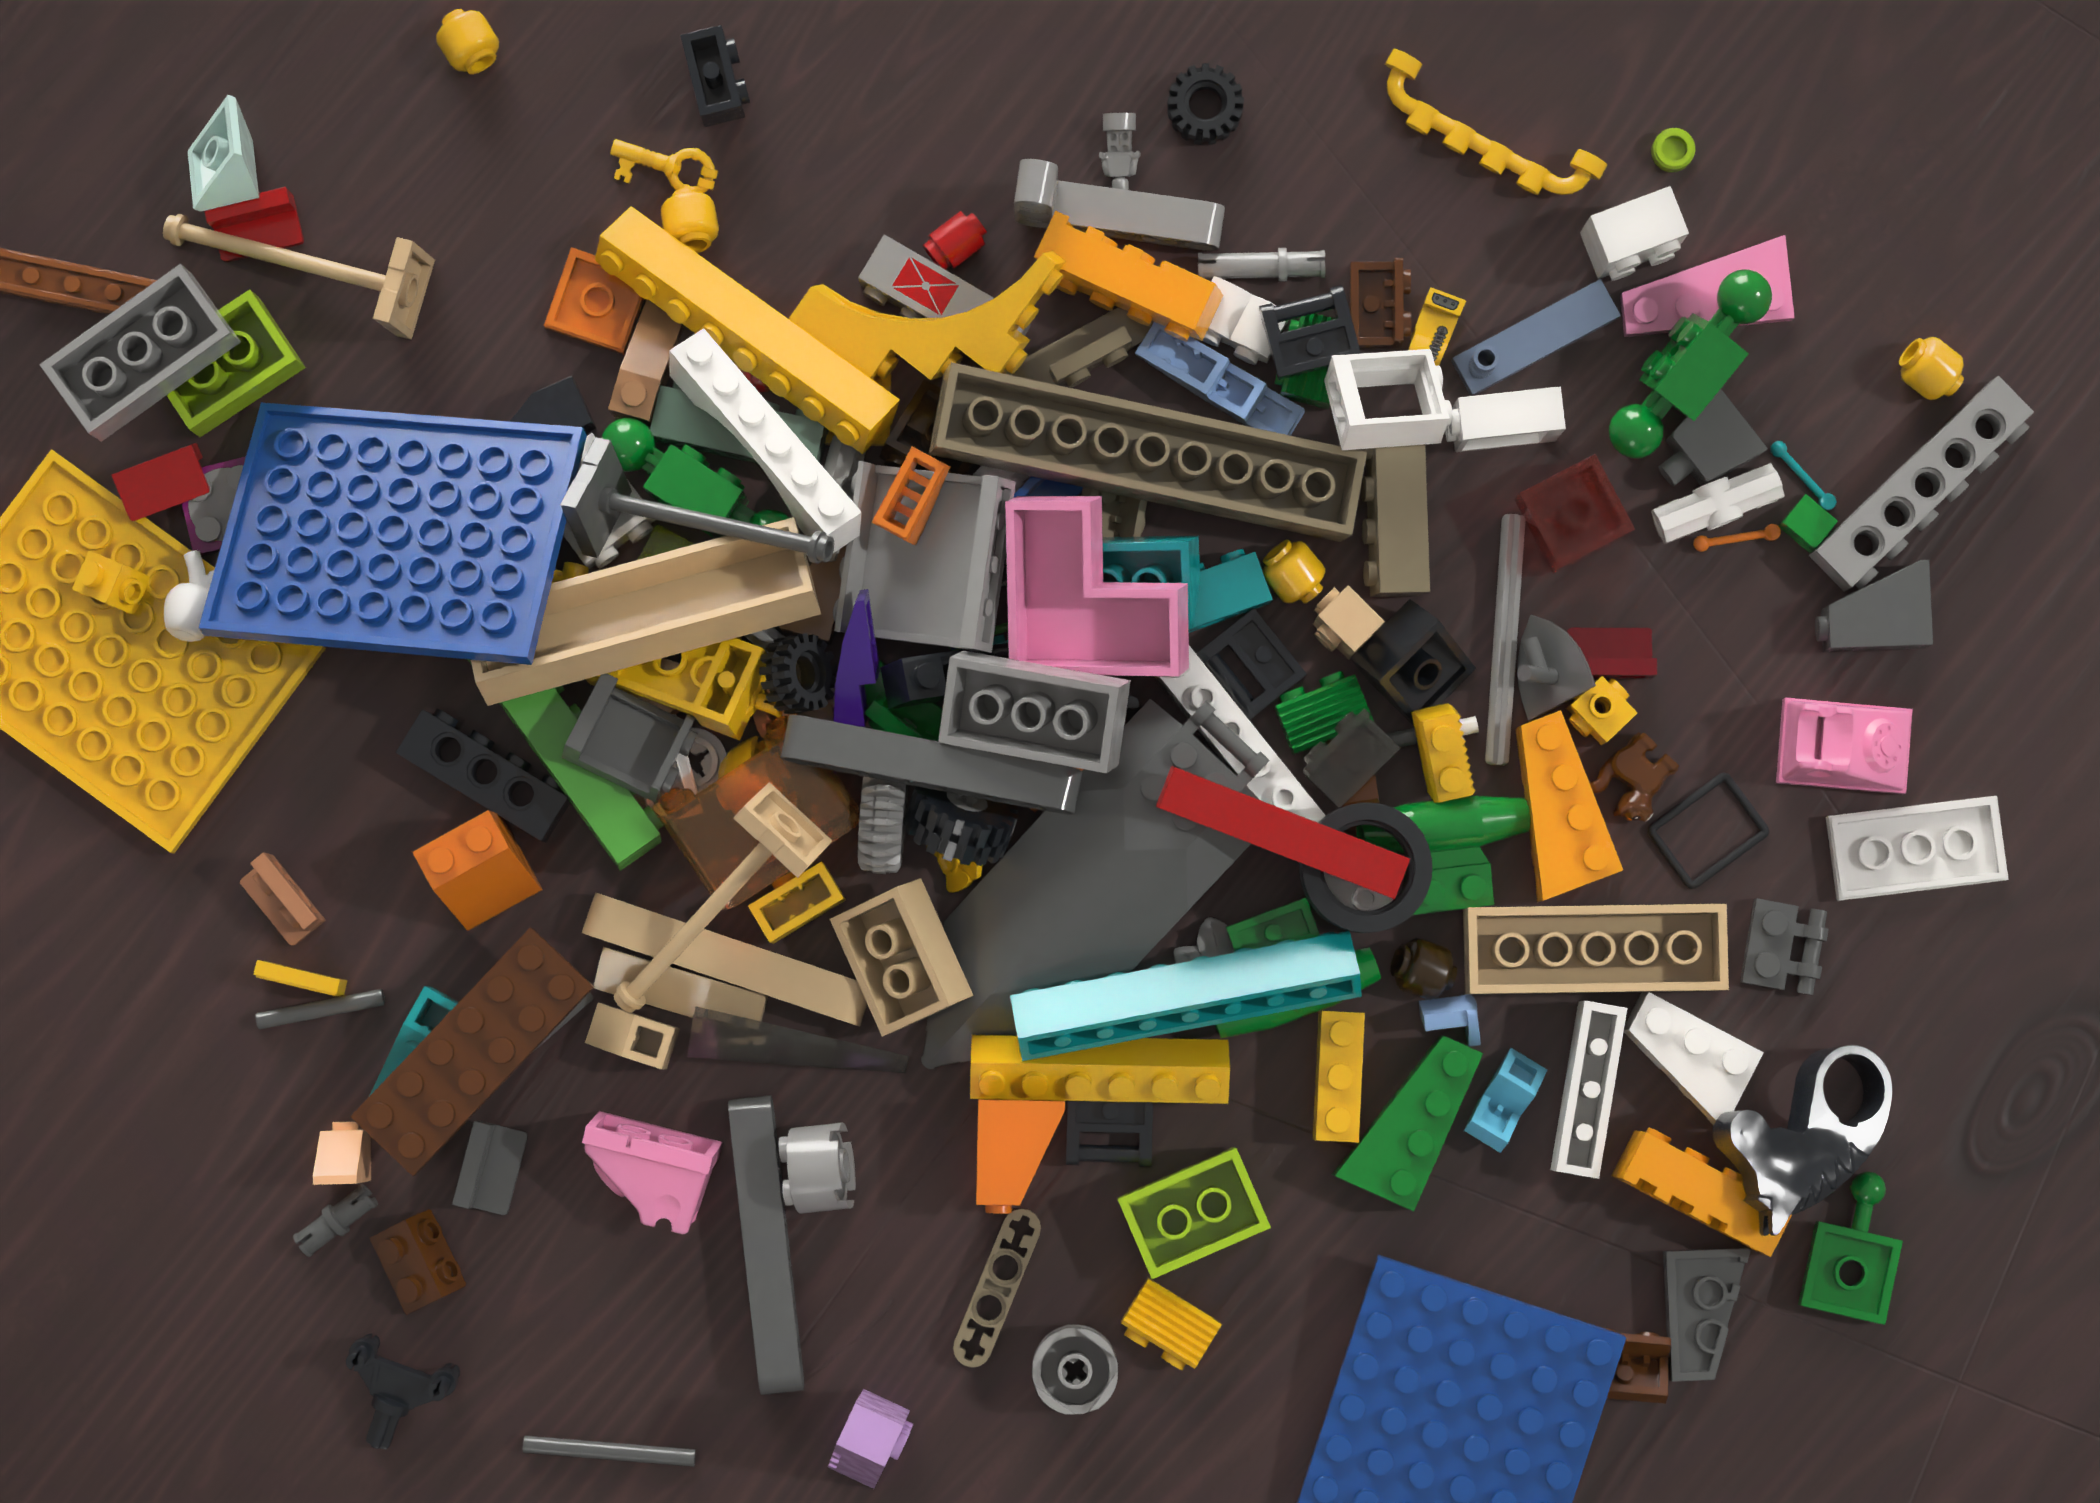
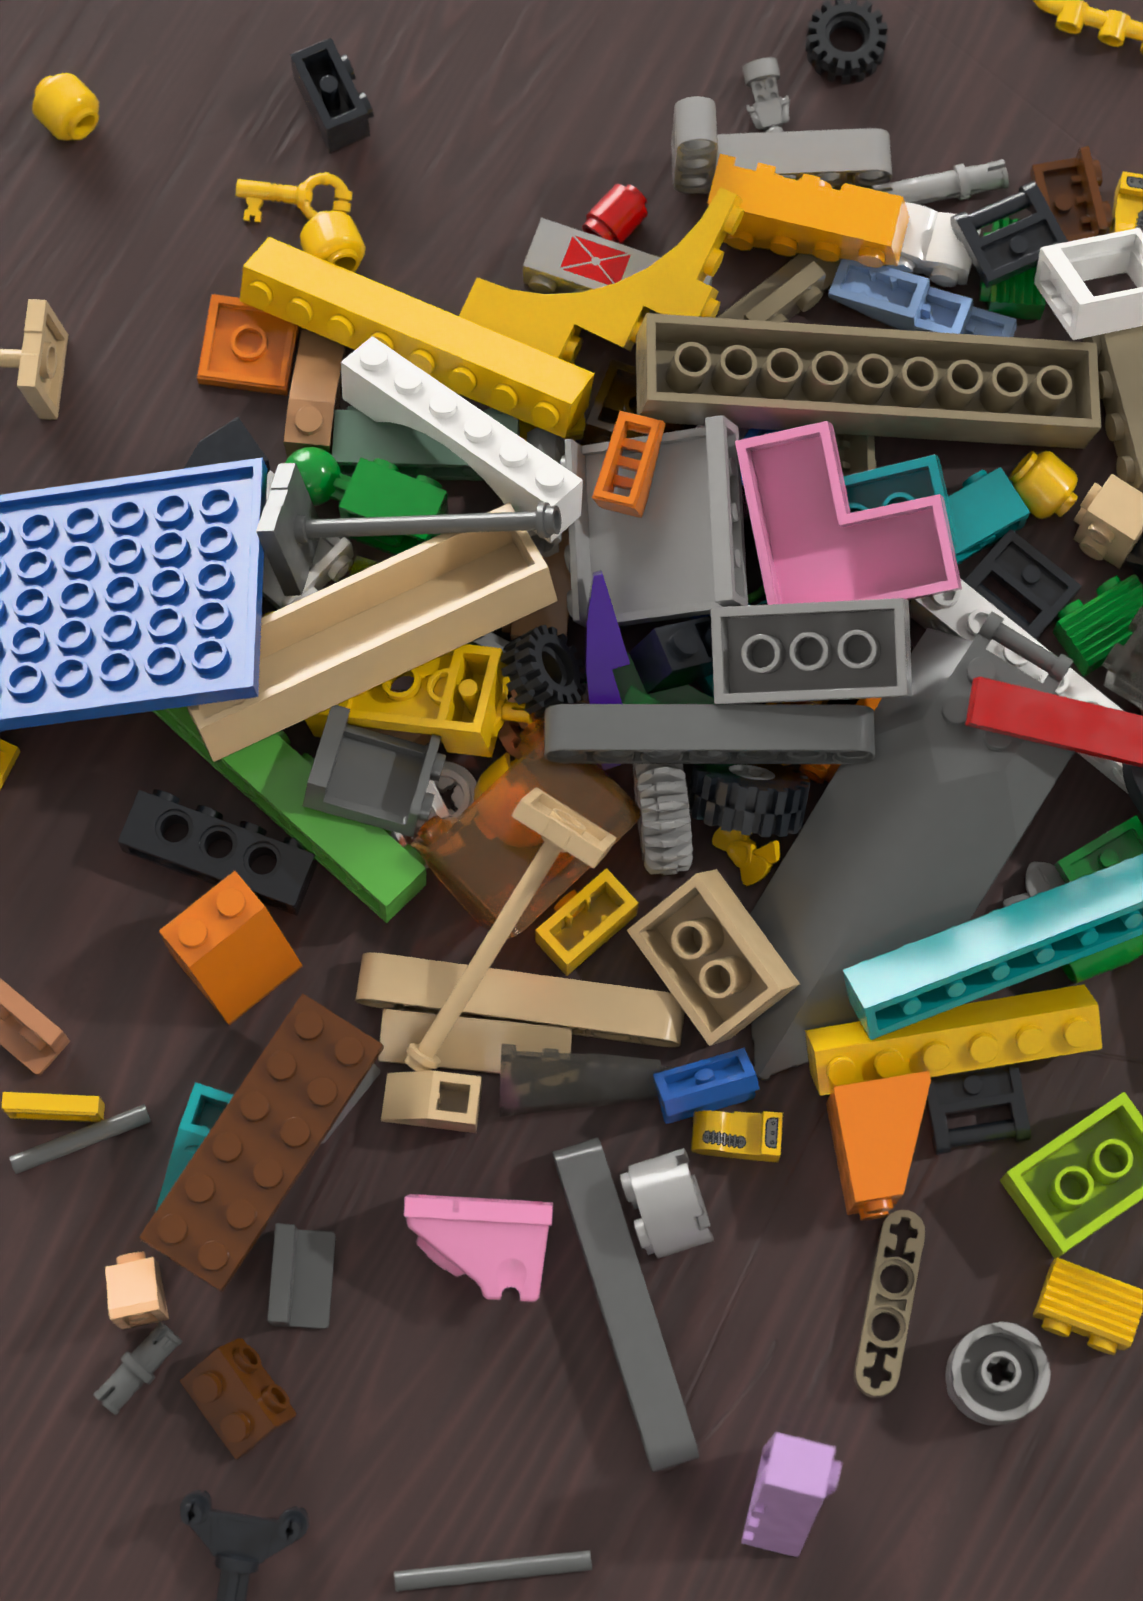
camera: 15 degrees left, 10 degrees down
(872, 1067) = (705, 1085): none -> blue panel
(894, 1115) = (738, 1135): none -> yellow leg

